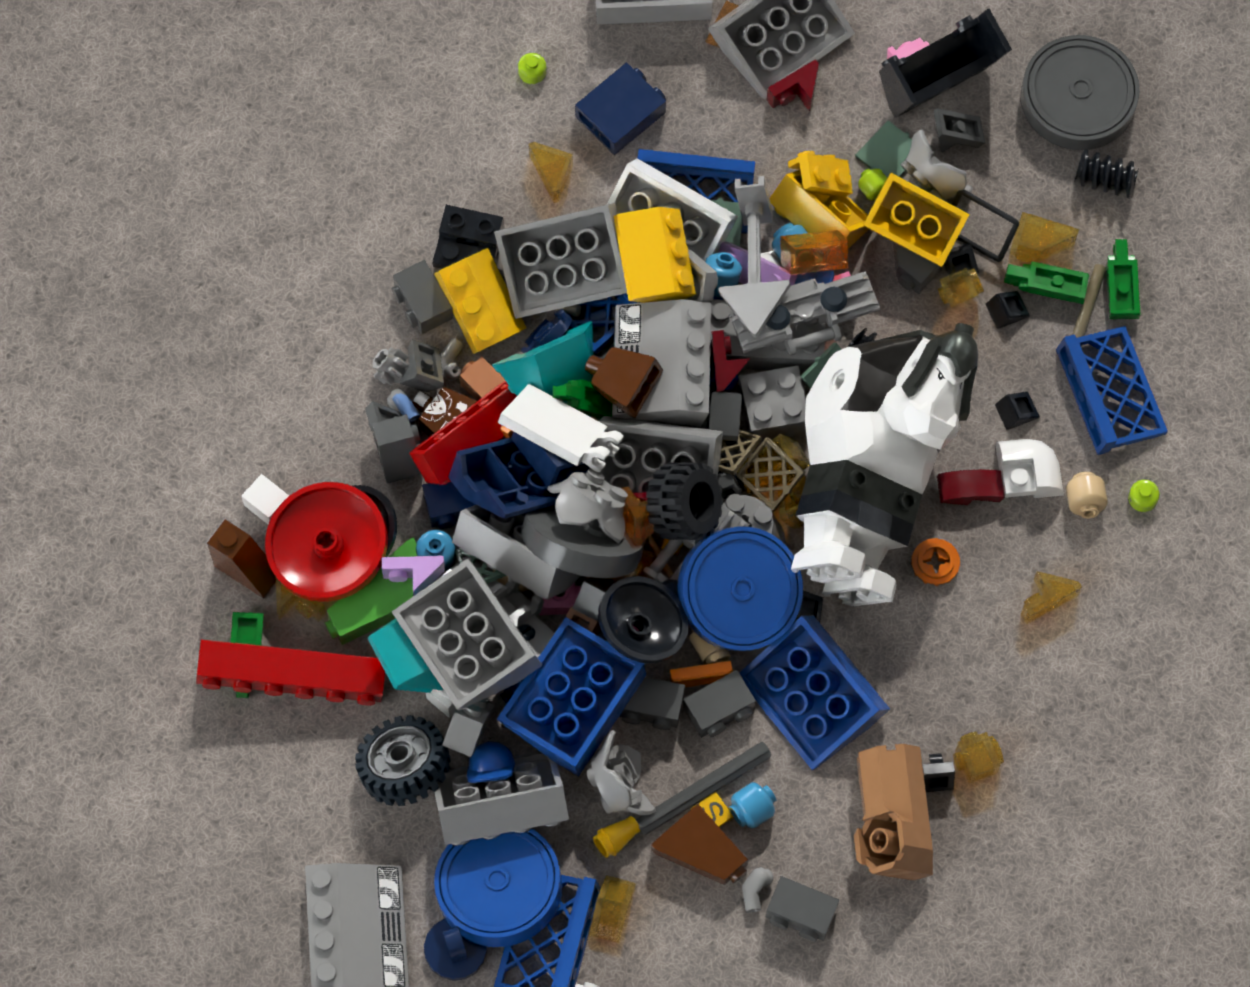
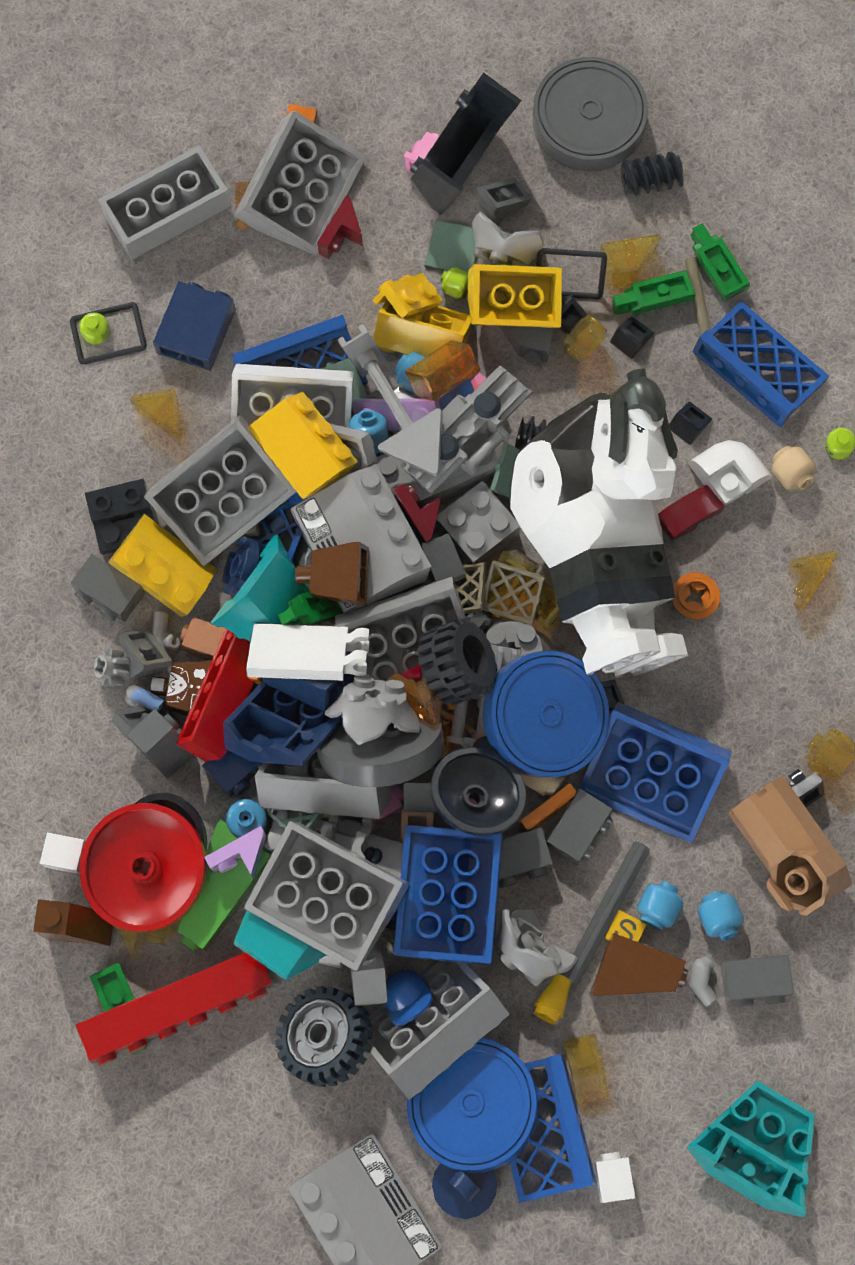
camera: 25 degrees left, 5 degrees up
(539, 99) = (73, 319): none -> black piece
(801, 841) = (720, 915): none -> dark azure head

